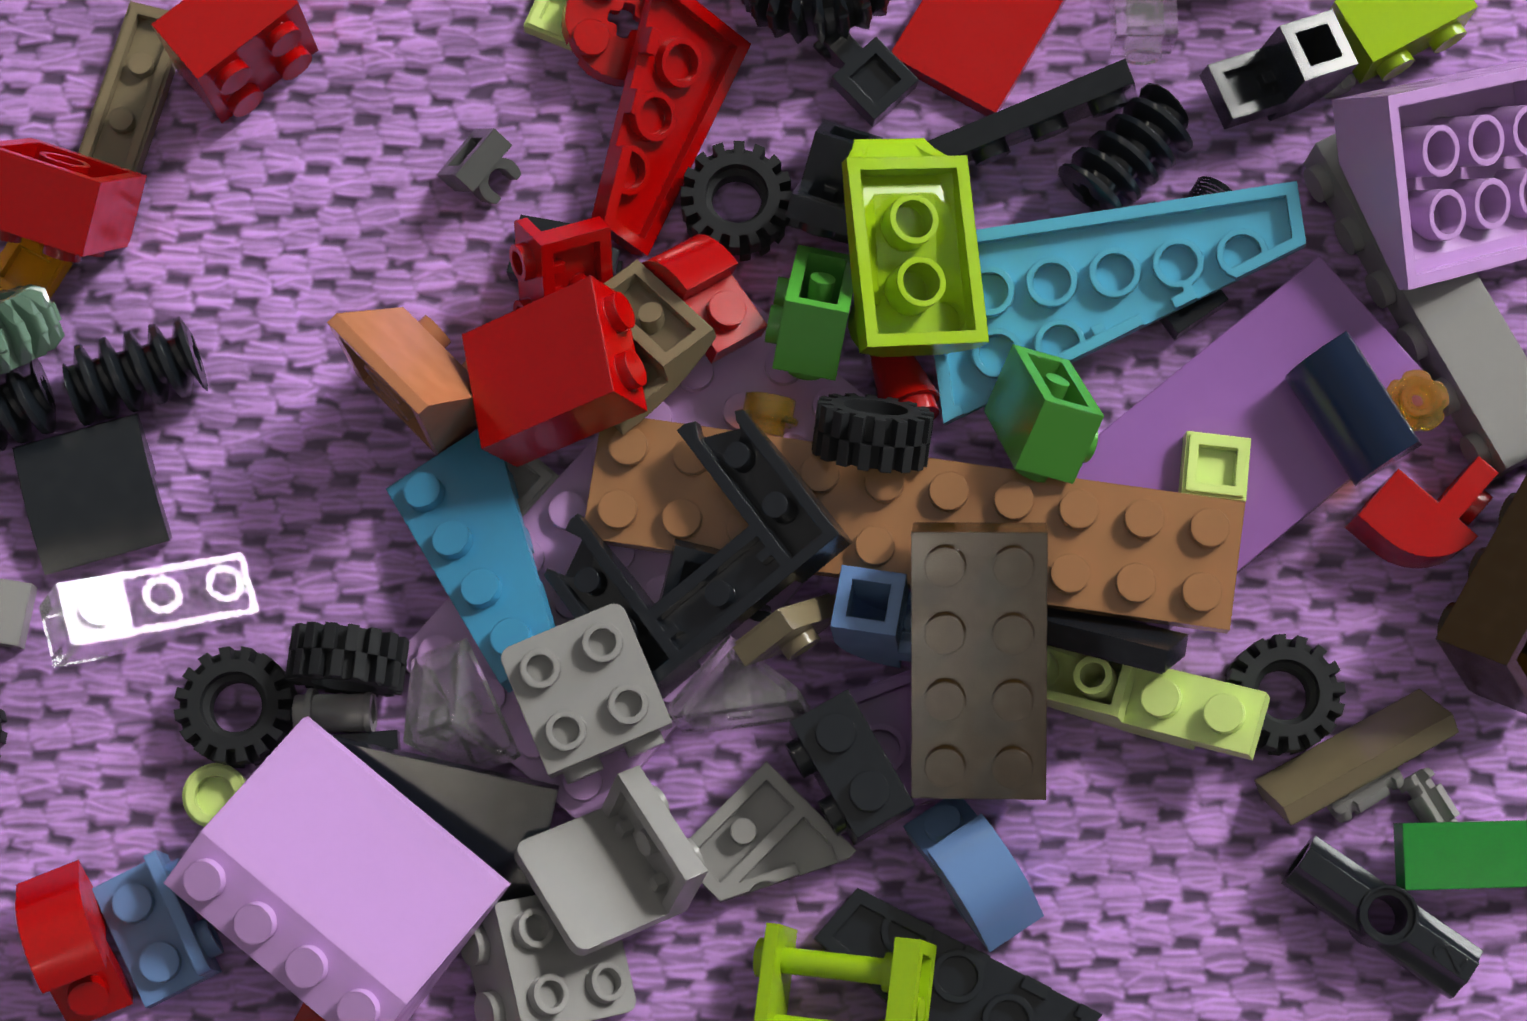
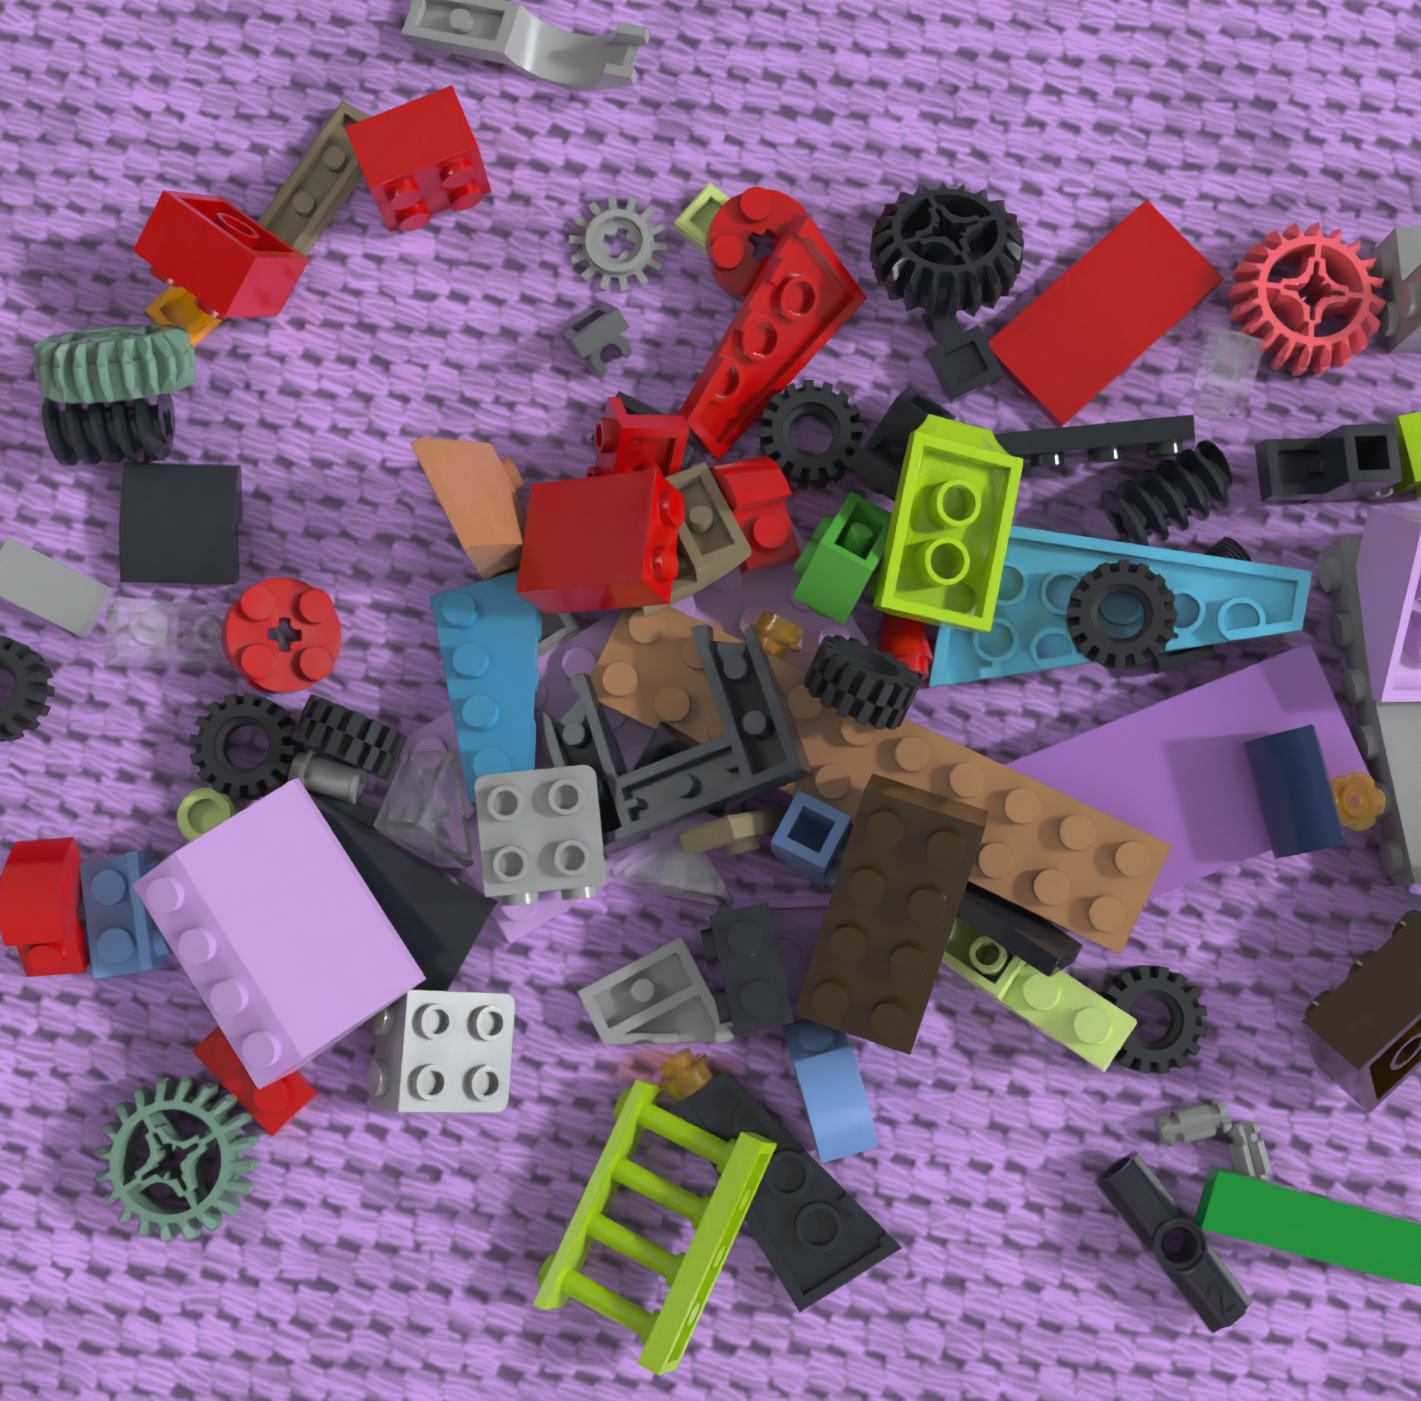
camera: 20 degrees right, 5 degrees up
(133, 371) = (245, 429): black piece -> none
(223, 607) = (258, 659): none -> red plate
(453, 48) = (607, 225): none -> light grey gear
(613, 867) = (519, 989): light grey bracket -> none
(815, 906) = (684, 1074): none -> clear yellow plate
(1043, 415) = (1018, 712): bright green brick -> none
(1106, 247) = (1129, 579): none -> black tyre
(1214, 465) = (1154, 803): yellowish green tile -> none
(1356, 756) = (1197, 1093): dark tan tile -> none
(1414, 528) = (1316, 911): red brick -> none

